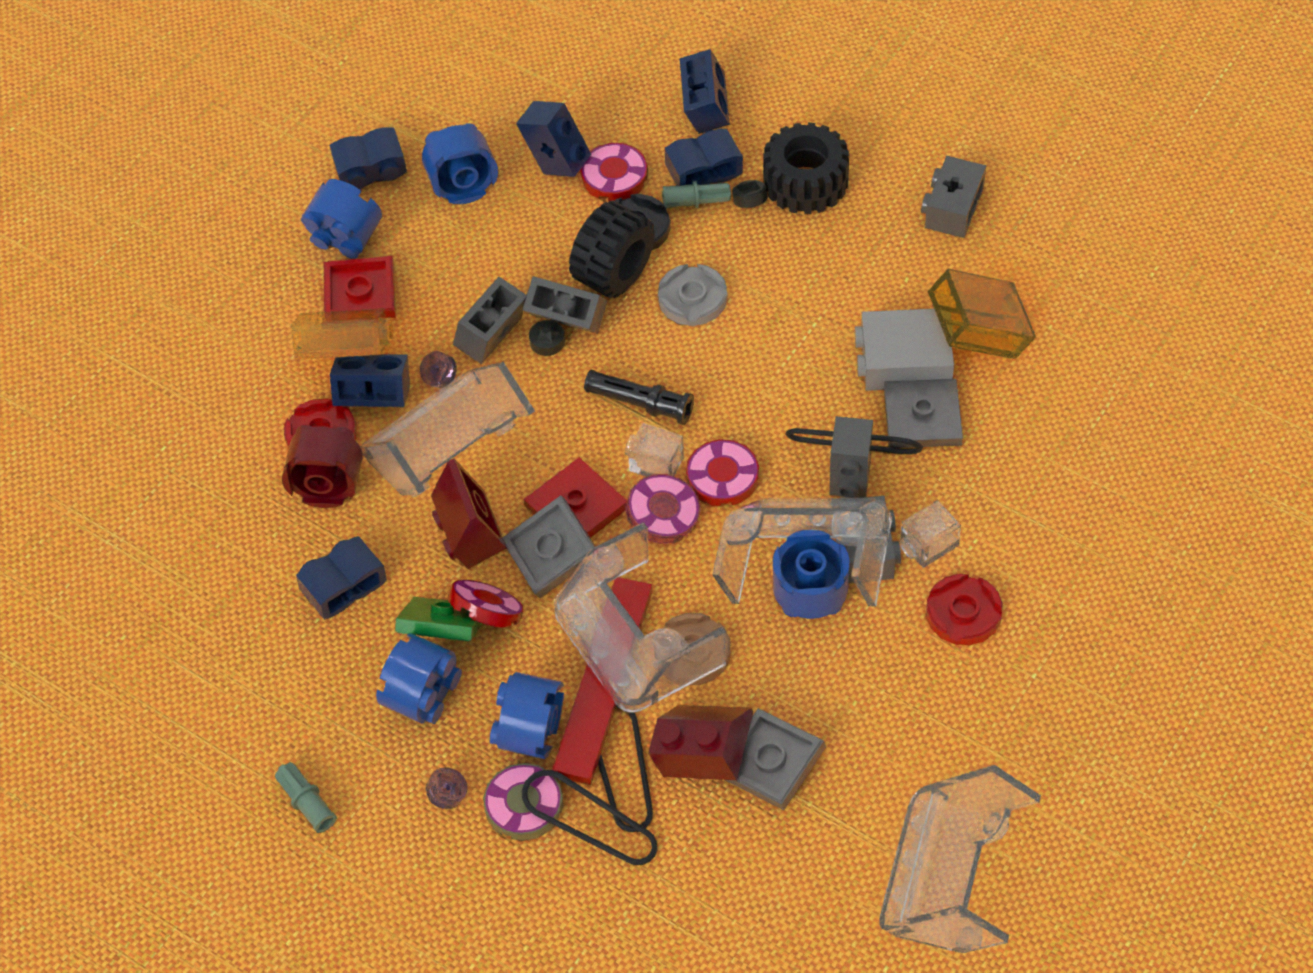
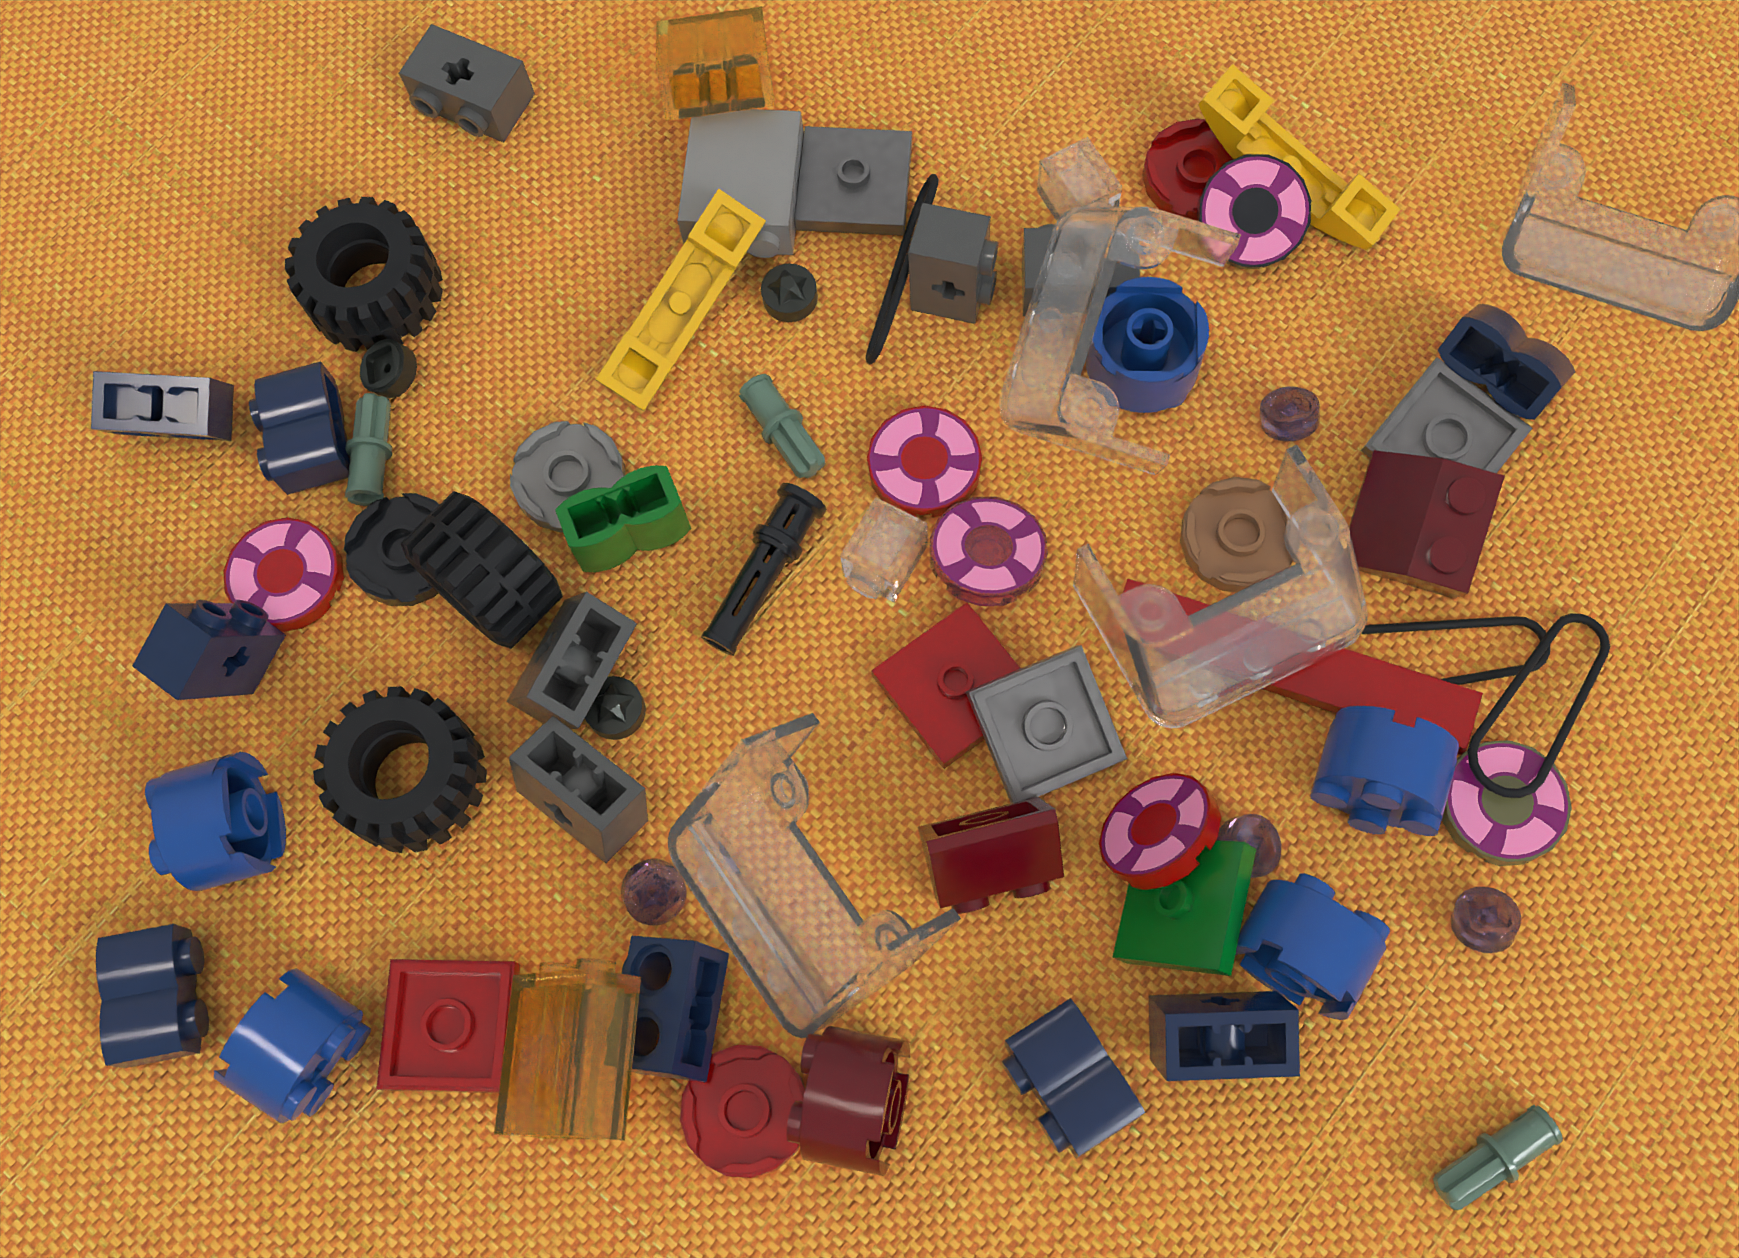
camera: 80 degrees left, 15 degrees up
(364, 639) = (1224, 1036): none -> brick
(484, 659) = (1259, 834): none -> tile
(490, 220) = (364, 742): none -> black tyre
(657, 317) = (614, 522): none -> green brick
(736, 394) = (782, 426): none -> sand green axle
(779, 668) = (1290, 413): none -> tile
(806, 326) = (681, 300): none -> yellow slope
(828, 785) = (1496, 352): none -> dark blue brick
(833, 388) = (789, 292): none -> pearl dark grey tile
(926, 634) = (1261, 202): none -> tile
(969, 654) = (1344, 210): none -> yellow slope

